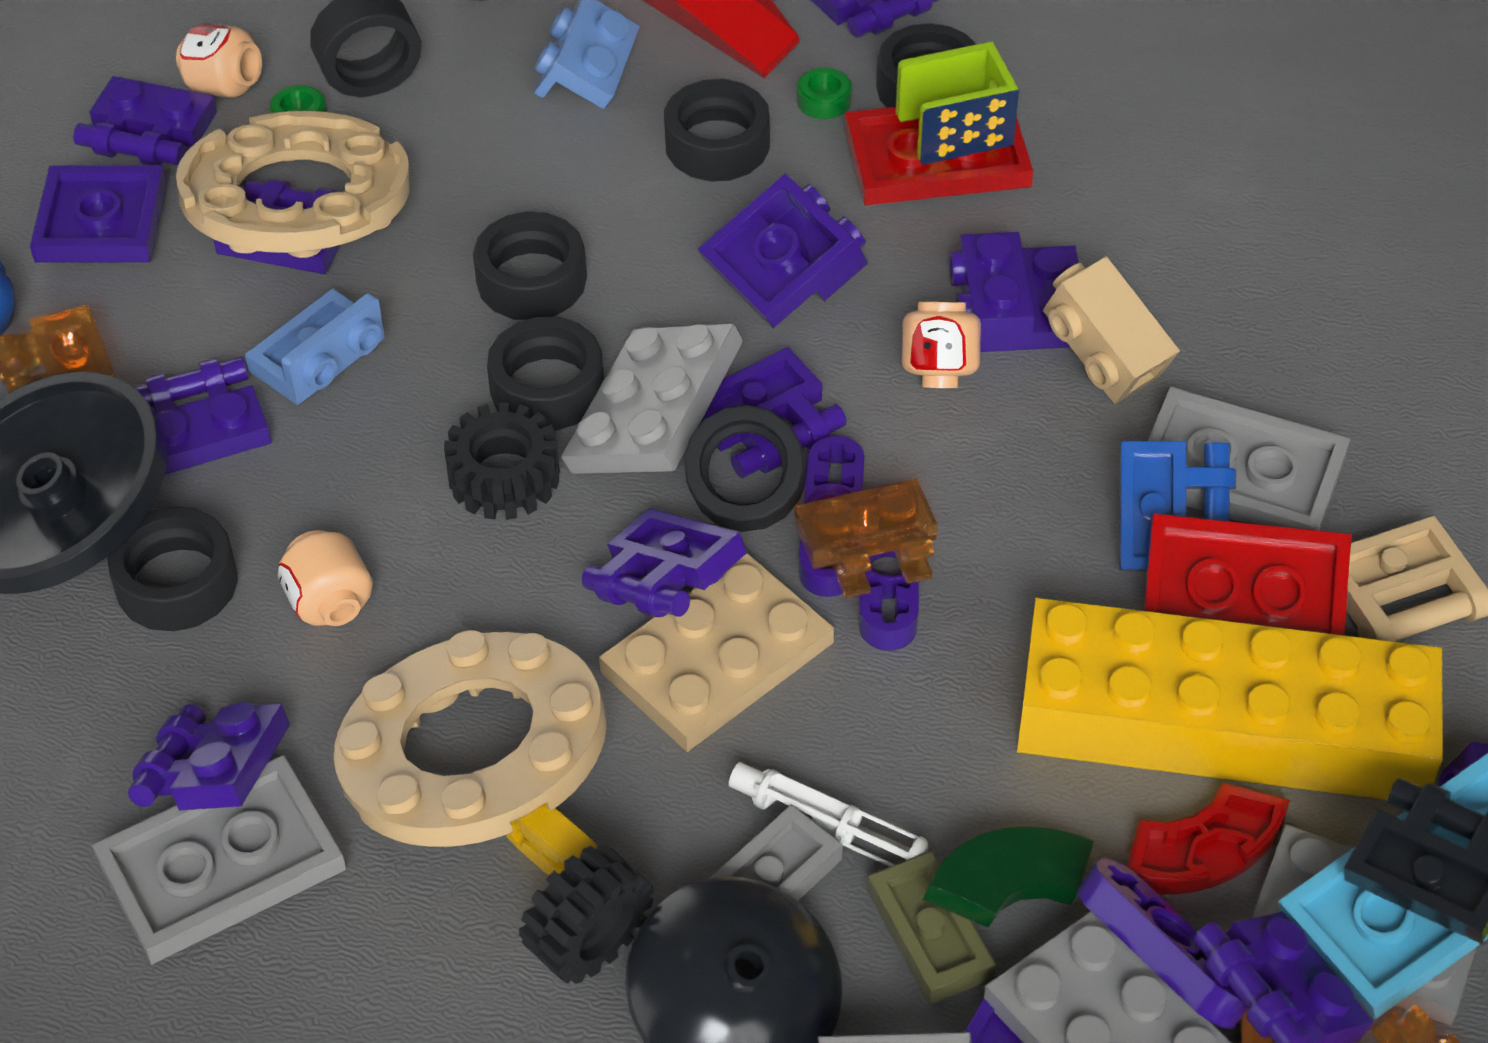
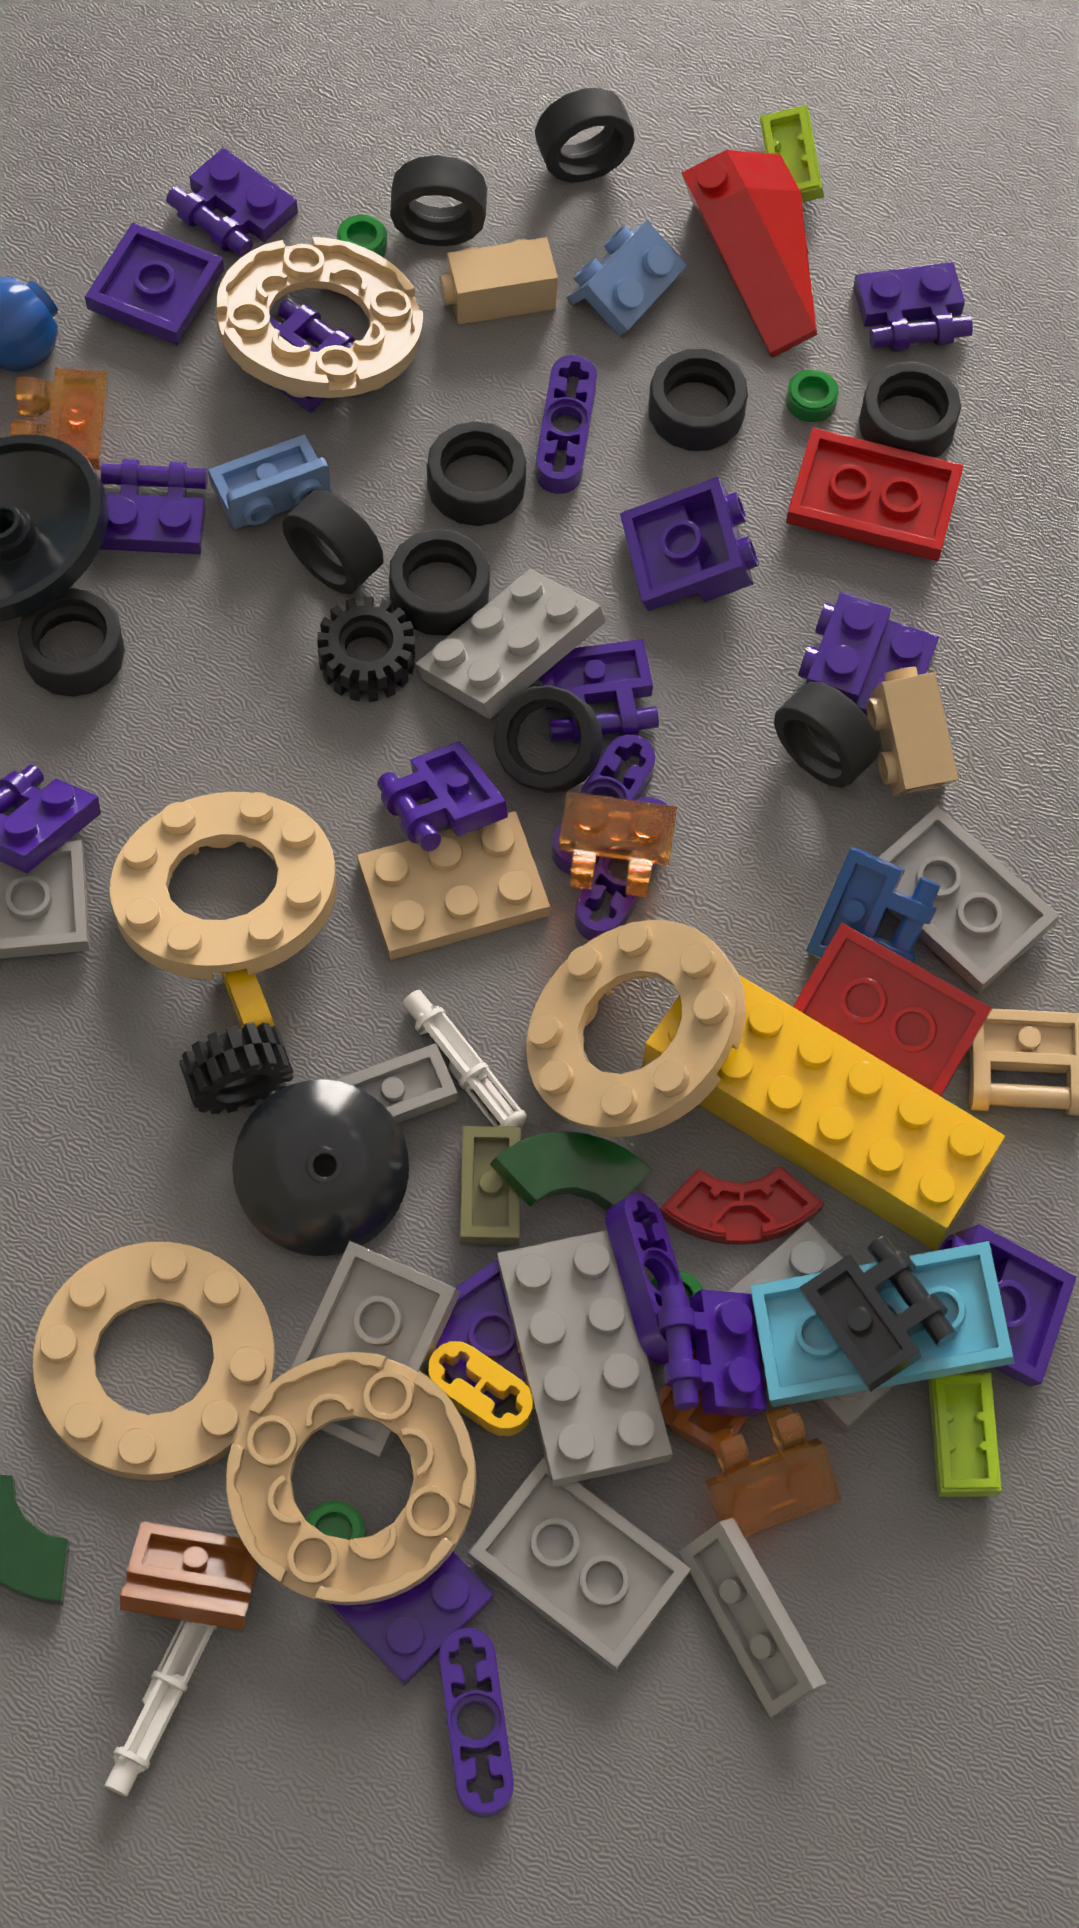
camera: 20 degrees right, 15 degrees up
(219, 60) = (314, 167): light nougat head -> none
(324, 576) = (181, 699): light nougat head -> none
(430, 343) = (332, 541): none -> black tyre
(463, 94) = (500, 281): none -> tan brick
(591, 214) = (572, 442): none -> dark purple beam
(941, 343) = (765, 684): head -> none
(958, 101) = (907, 441): piece -> none
(1035, 329) = (827, 734): none -> black tyre
(1052, 759) = (688, 1067): none -> tan plate

